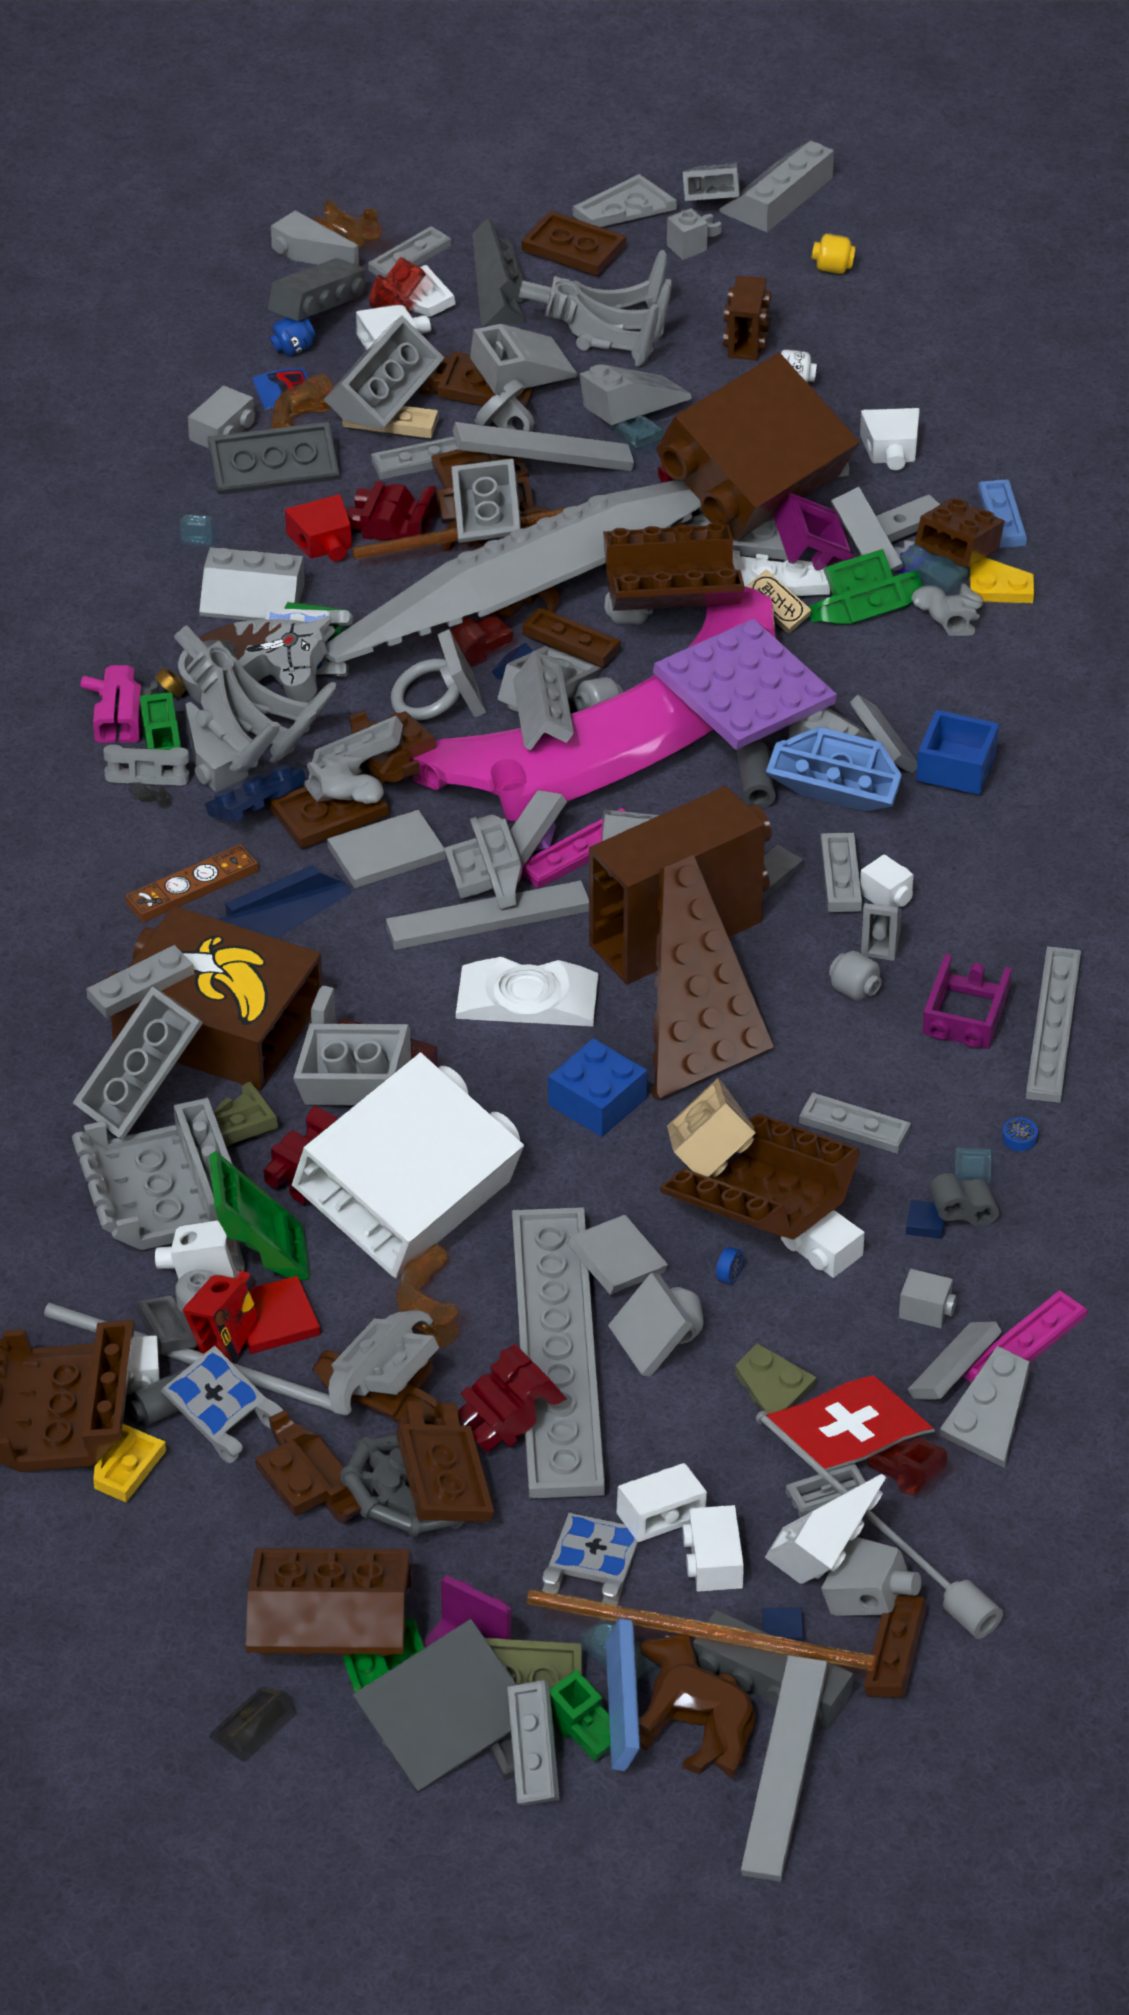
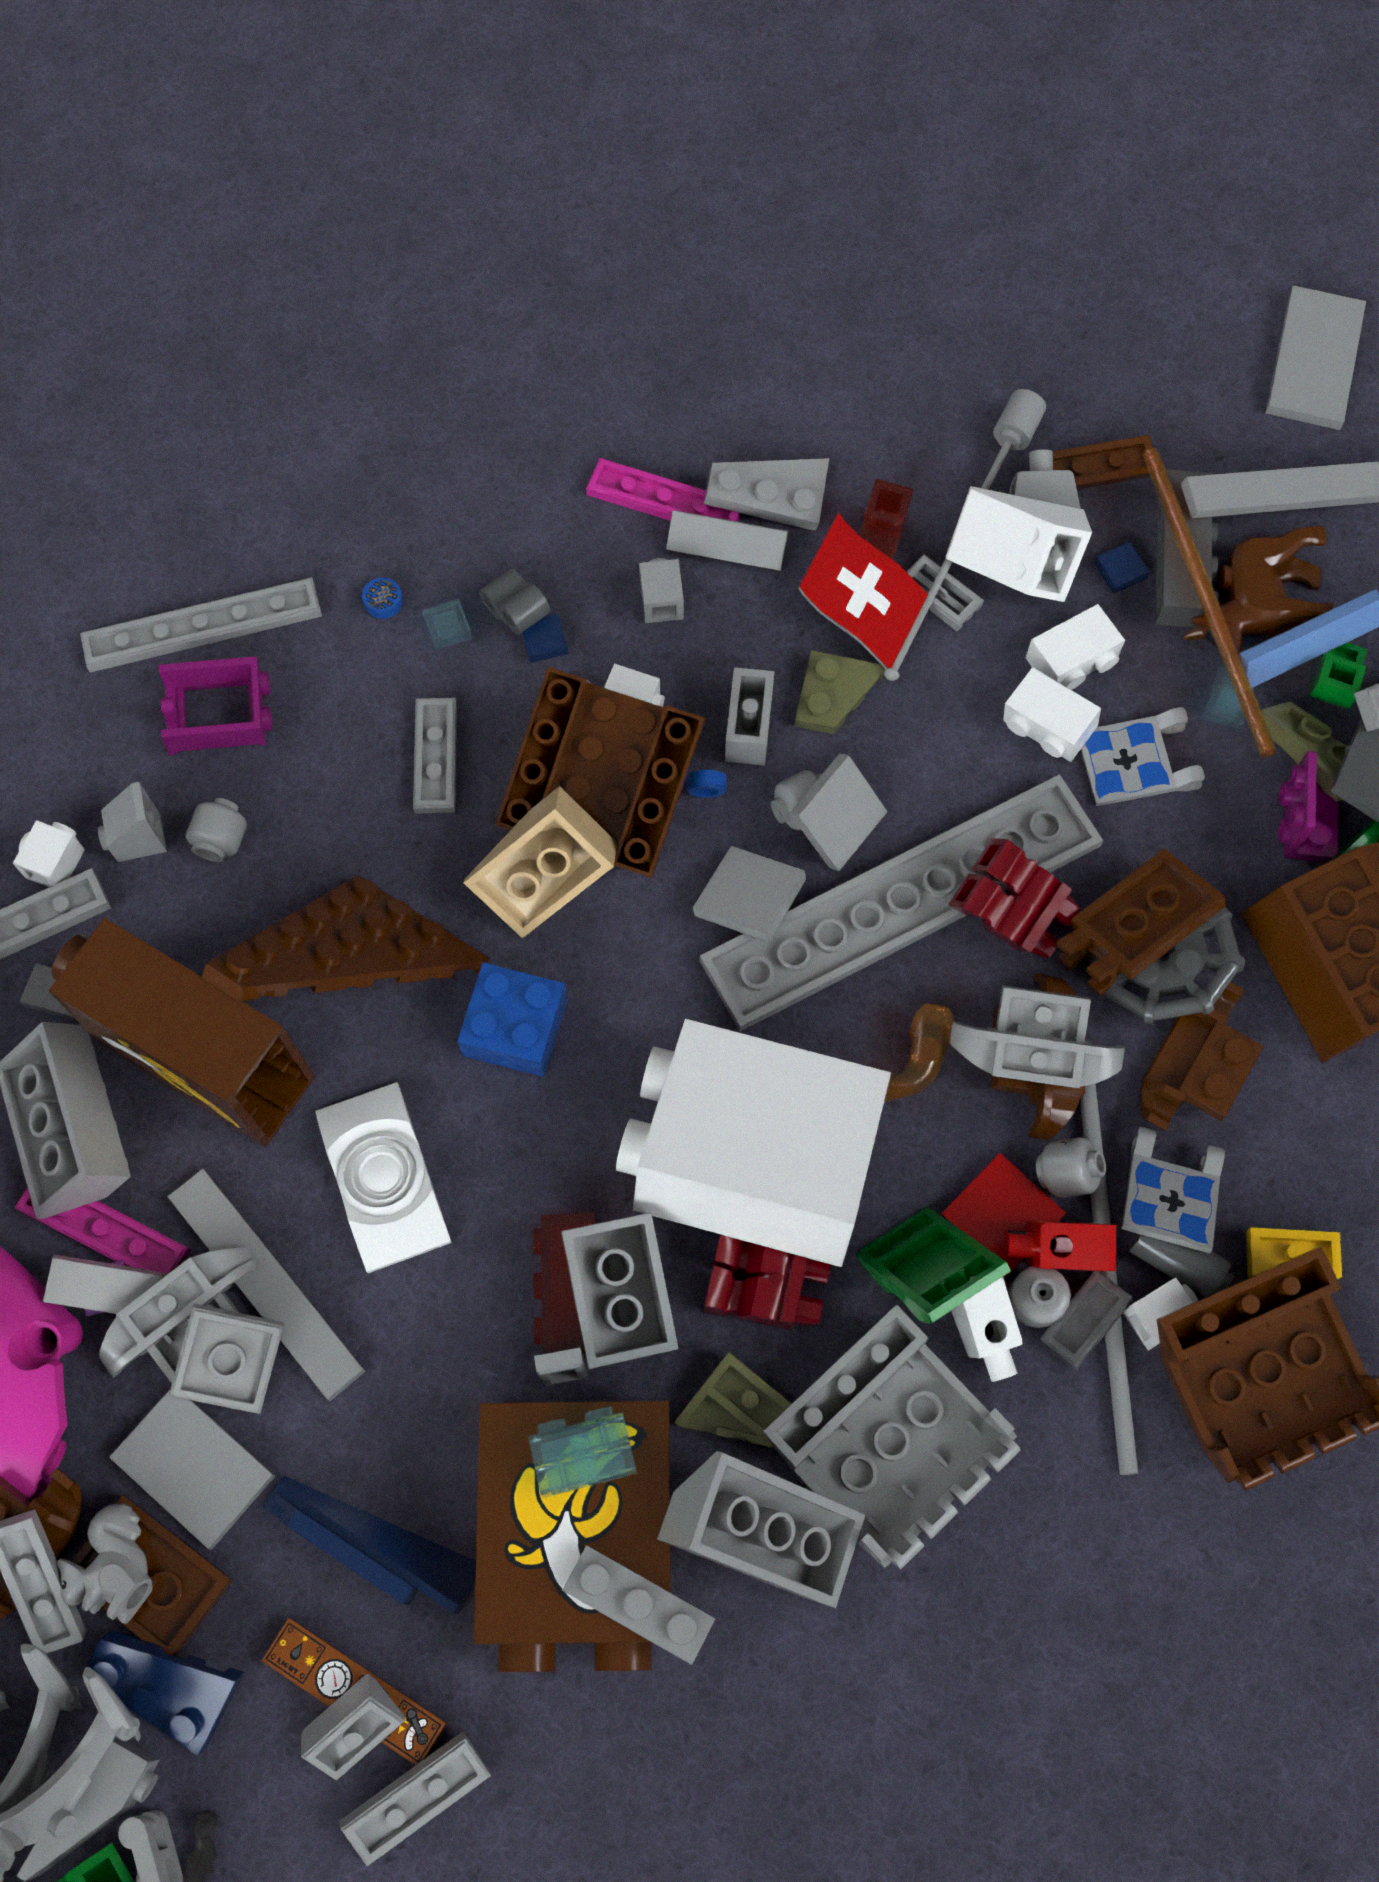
camera: 115 degrees left, 25 degrees up
(108, 889) = (414, 1798): none -> light grey tile
(169, 867) = (350, 1728): none -> light grey slope
(251, 978) = (581, 1453): none -> clear light blue brick
(279, 1352) = (1070, 1167): none -> light grey head
(443, 871) = (226, 1358): none -> light grey tile
(770, 1303) = (749, 716): none -> light grey brick
(931, 1882) = (1316, 357): none -> light grey tile

